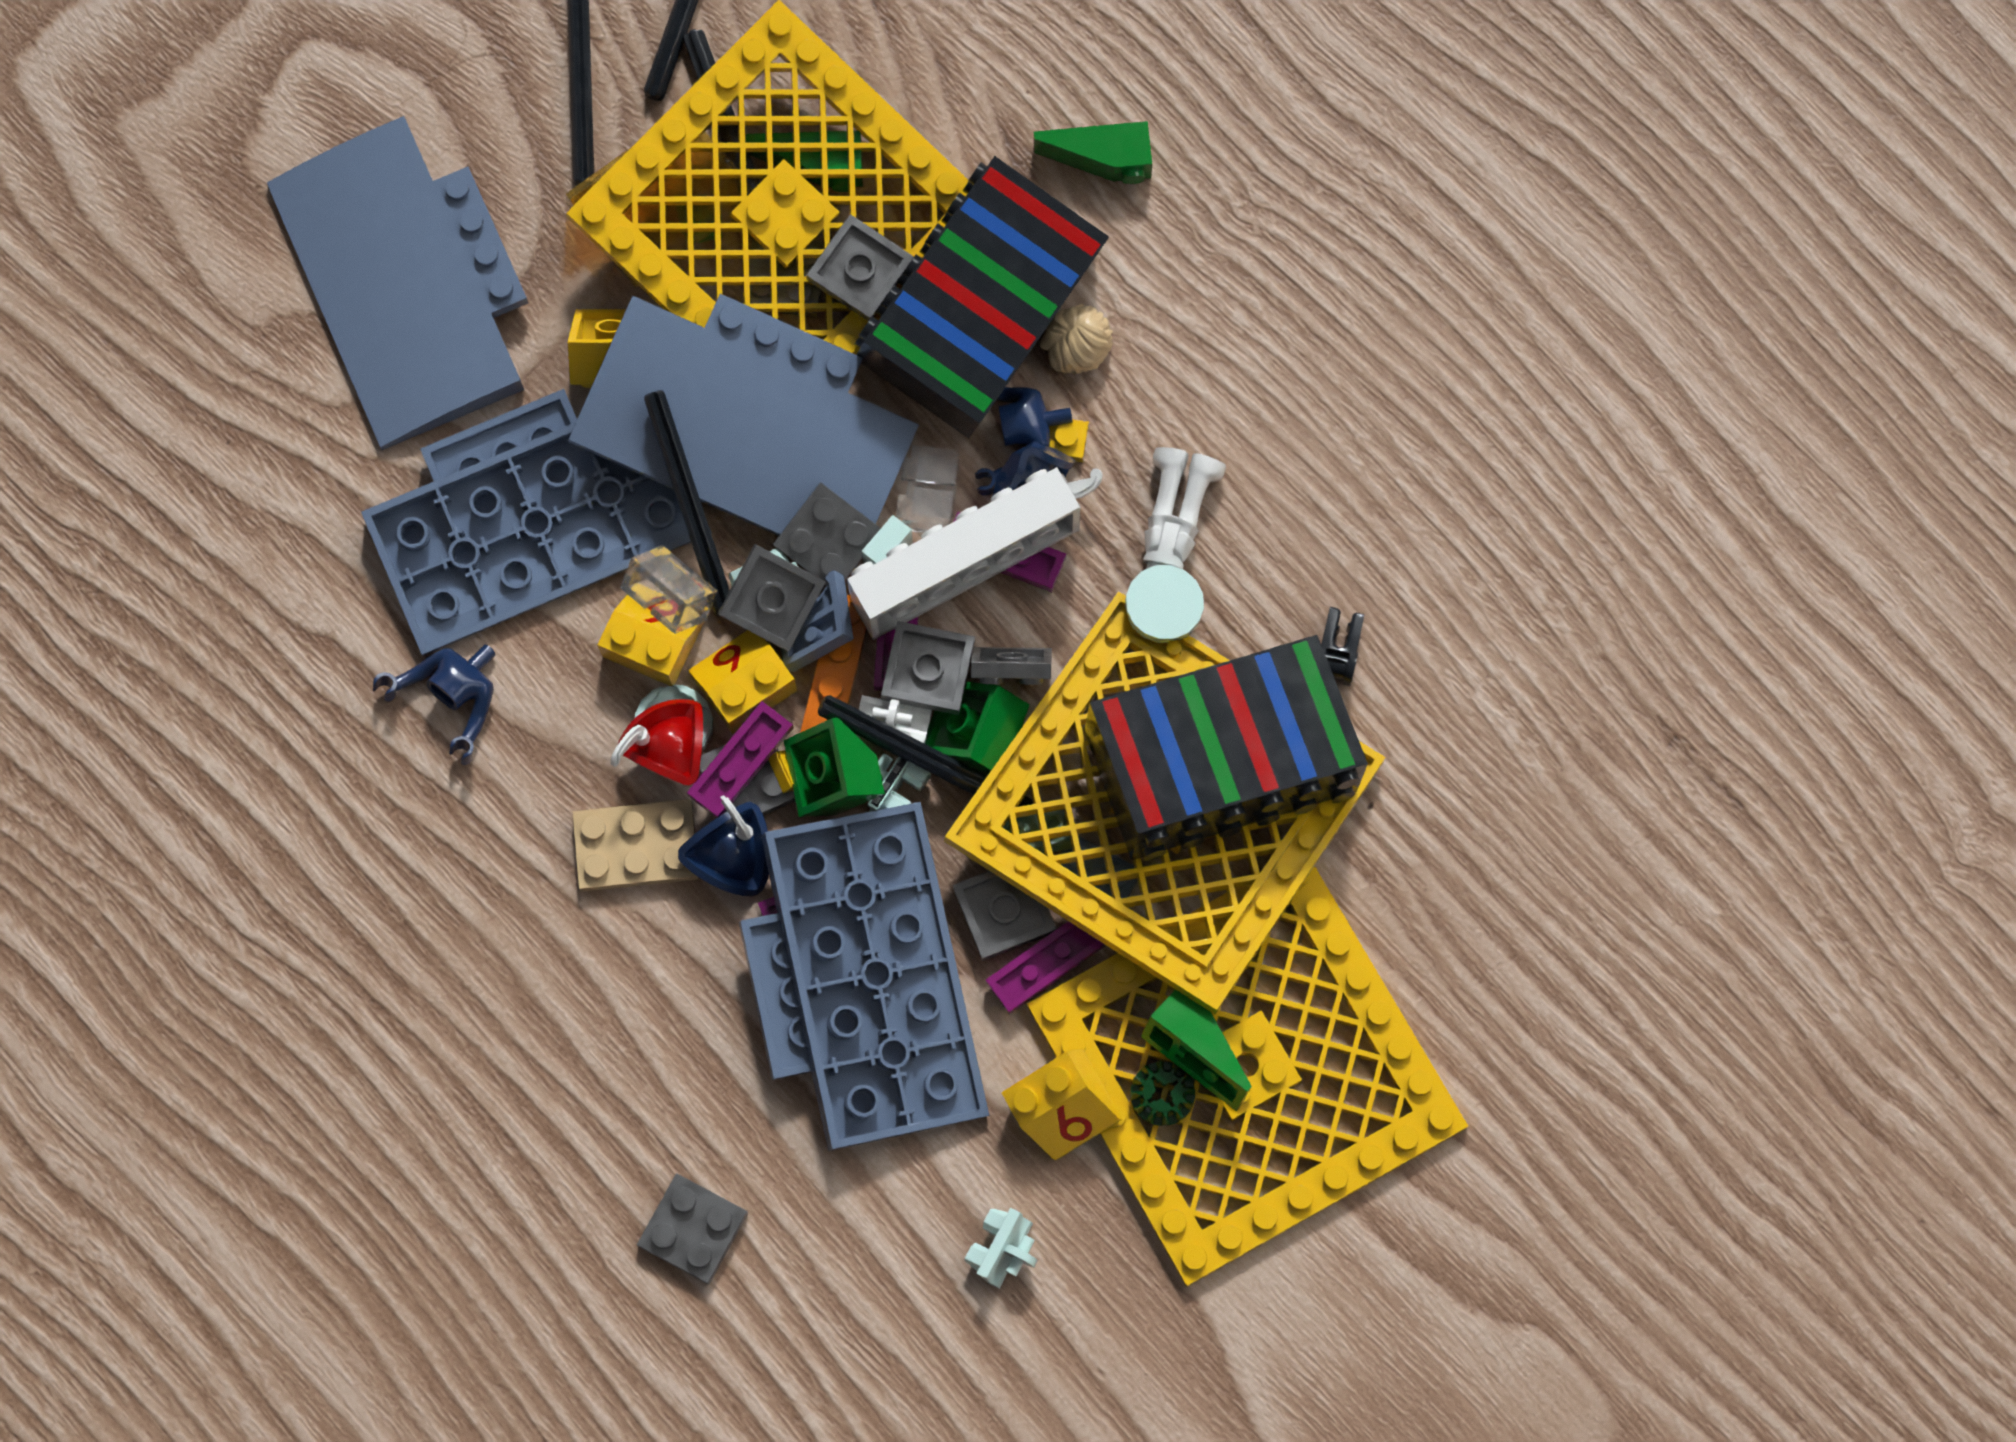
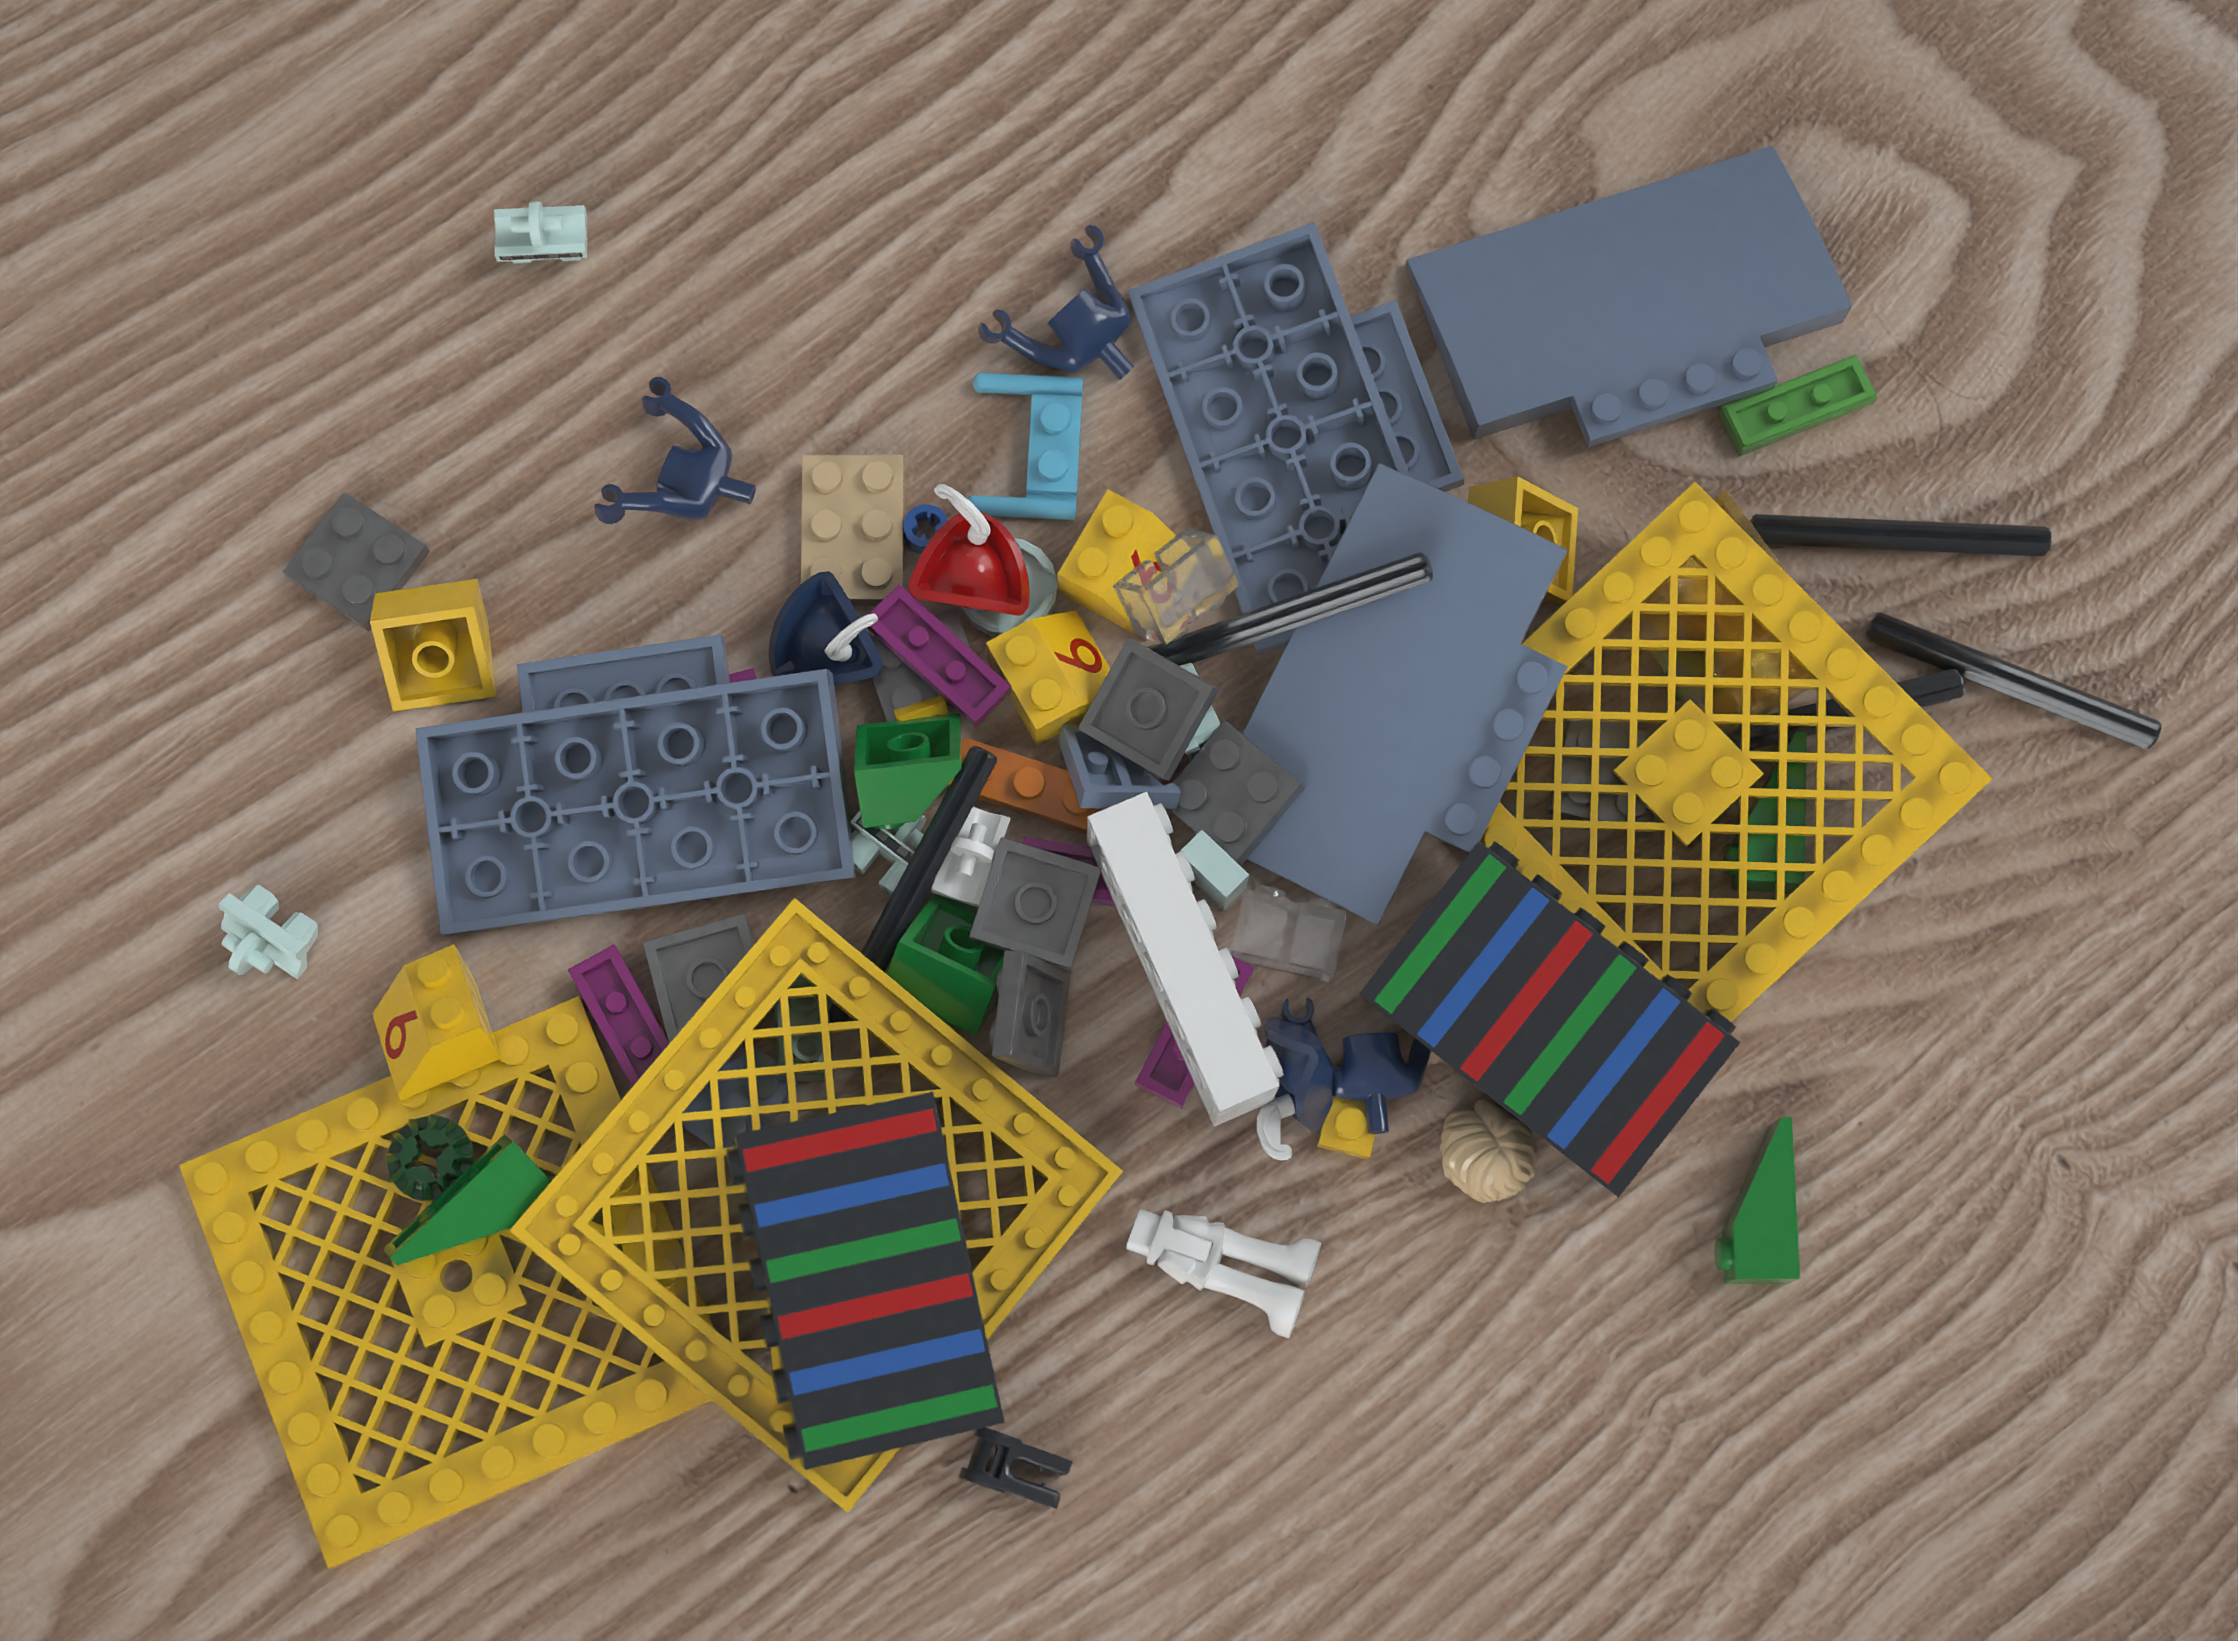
camera: 90 degrees right, 0 degrees up
(406, 1115) = (540, 233): none -> light aqua hips
(481, 154) = (1797, 405): none -> bright green tile
(555, 701) = (1052, 446): none -> medium azure plate
(602, 974) = (689, 477): none -> dark blue piece
(634, 776) = (916, 515): none -> blue bush
(758, 1152) = (433, 644): none -> yellow slope
(859, 267) = (1603, 861): flat silver plate -> none
(1164, 603) = (1095, 1229): light aqua tile -> none

